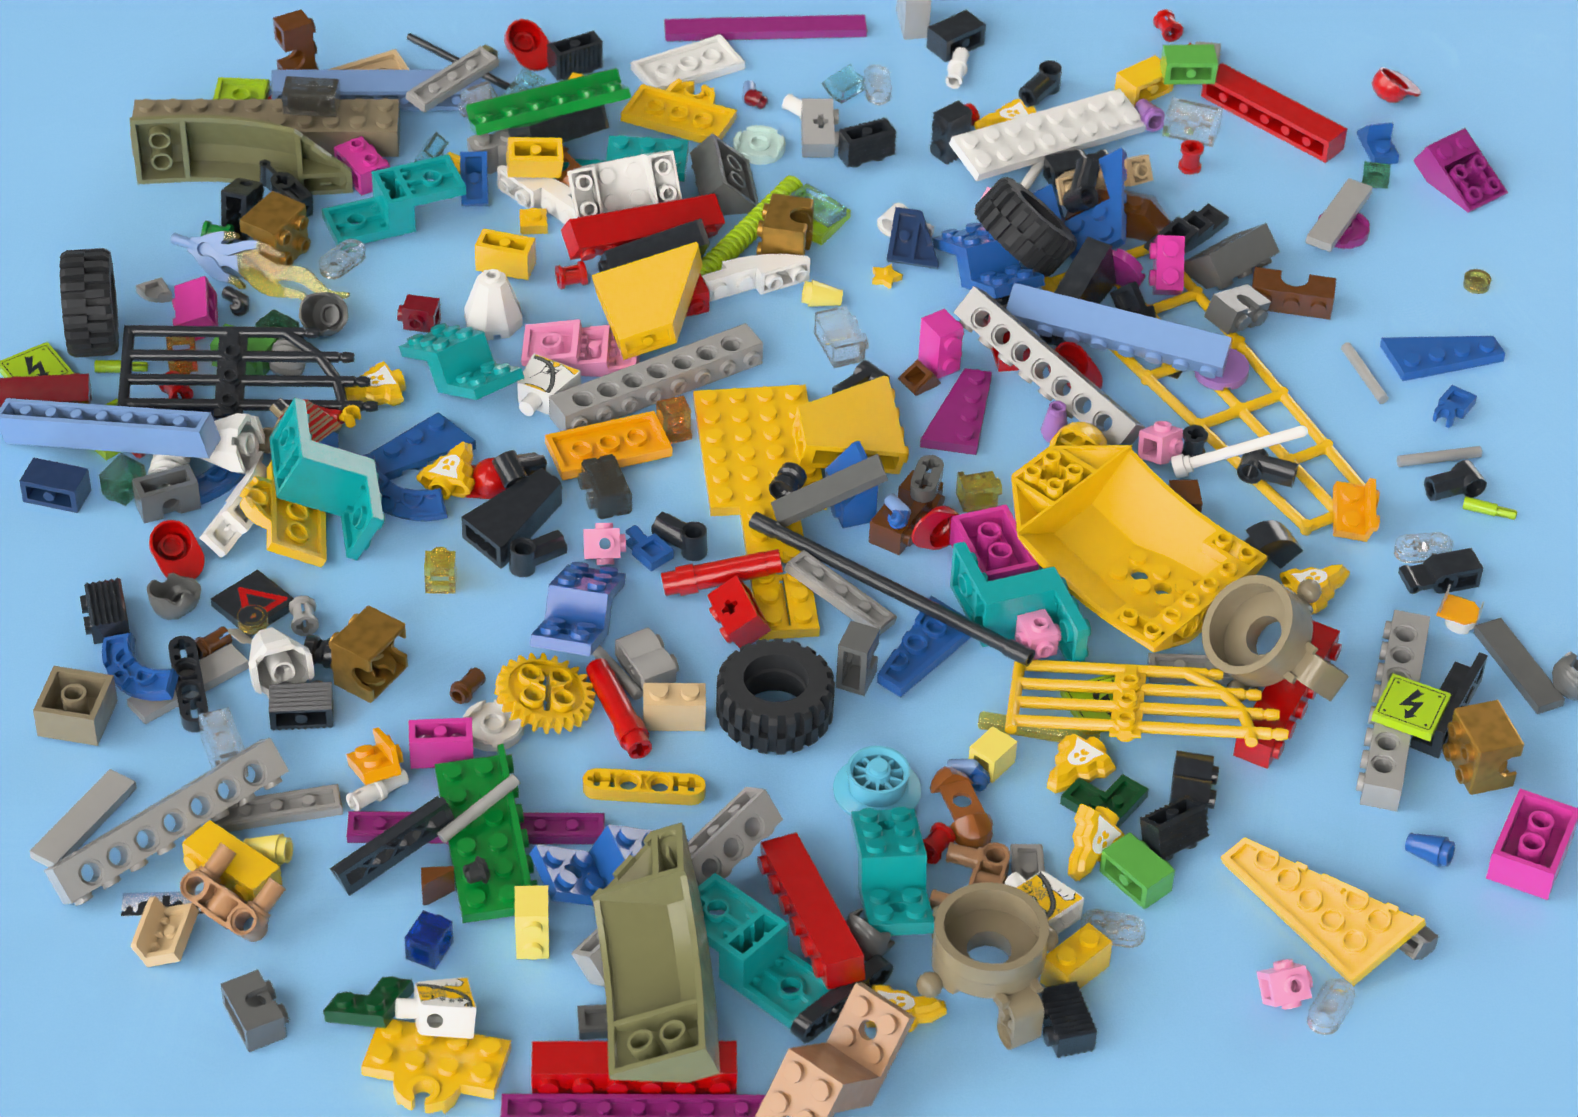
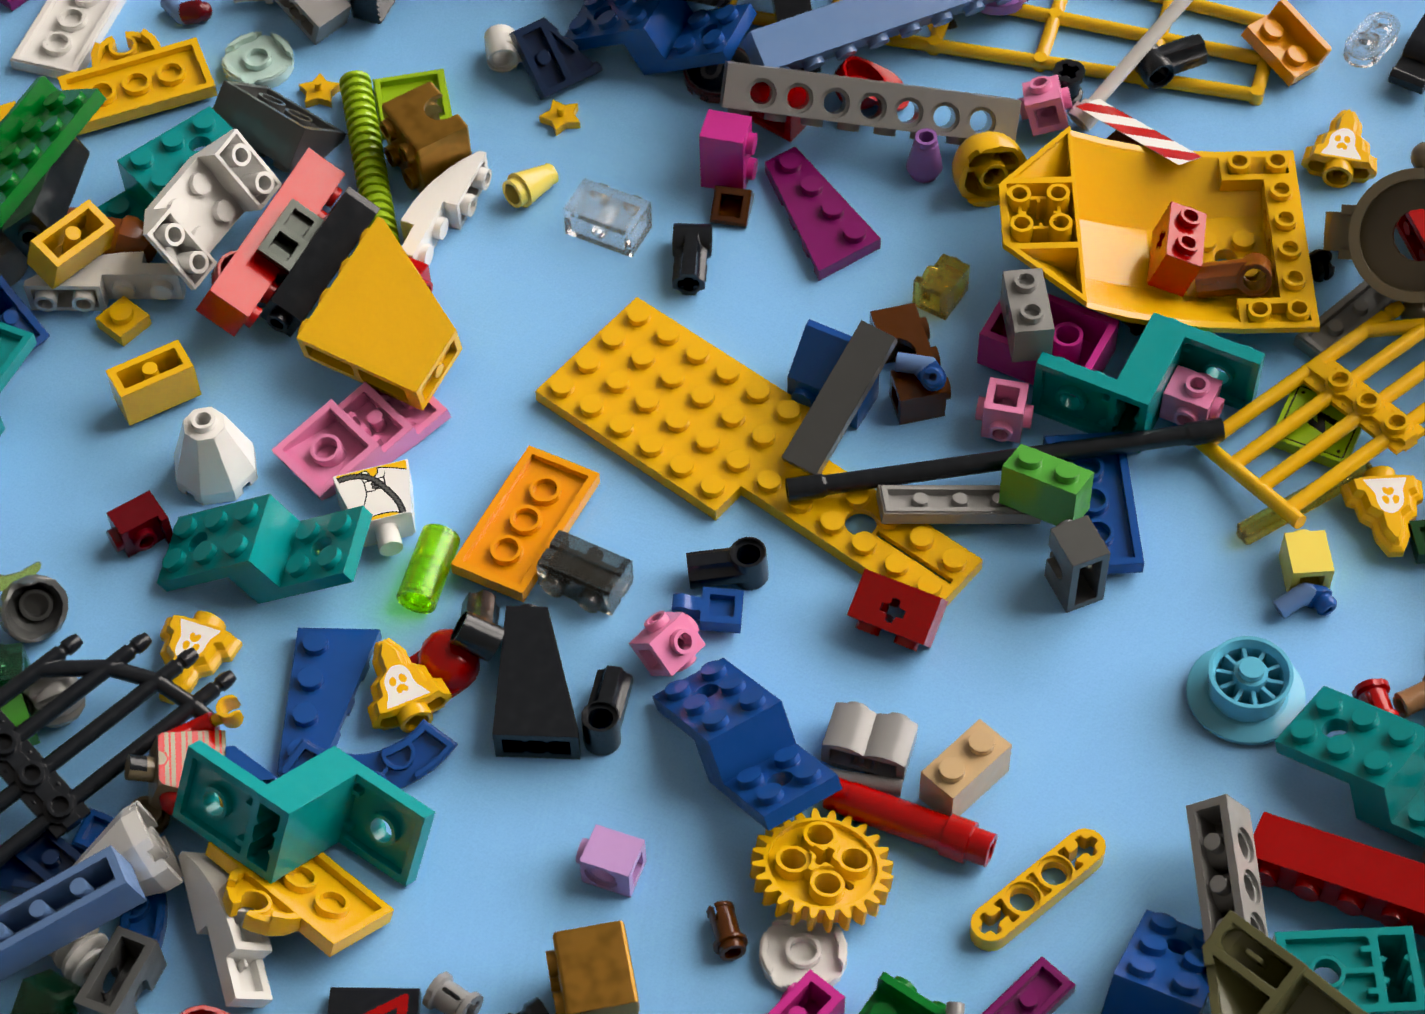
camera: 40 degrees left, 10 degrees up
(442, 564) = (533, 812): clear yellow brick -> none
(452, 615) = (611, 860): none -> lavender brick
(531, 429) = (428, 568): none -> clear neon green pin
(571, 275) = (246, 353): red bush -> none
(642, 224) = (289, 236): none -> pearl dark grey slope
(657, 379) = (486, 406): light grey brick -> none
(675, 418) = (562, 435): clear orange brick -> none
(691, 578) = (802, 607): red piece -> none
(770, 179) = (319, 91): none -> yellow piece
(775, 724) = (1063, 630): black tyre -> none
(788, 479) = (773, 418): black wheel -> none
(826, 209) = (399, 81): clear light blue plate -> none
(859, 413) = (755, 312): yellow slope -> none
(888, 610) = (1045, 486): none -> bright green brick
(922, 477) = (908, 306): dark grey beam -> none
(923, 566) = (1004, 410): none -> bright pink brick
(934, 528) = (960, 354): red cap -> none
(970, 823) = (1381, 651): dark orange piece -> none
(981, 518) = (1026, 314): none -> light grey brick
(1123, 554) = (1177, 249): none -> red brick
(1142, 593) = (1228, 277): none -> dark orange piece
(1186, 486) = (1138, 131): none -> sticker
(1274, 541) = (1267, 131): black brick -> none

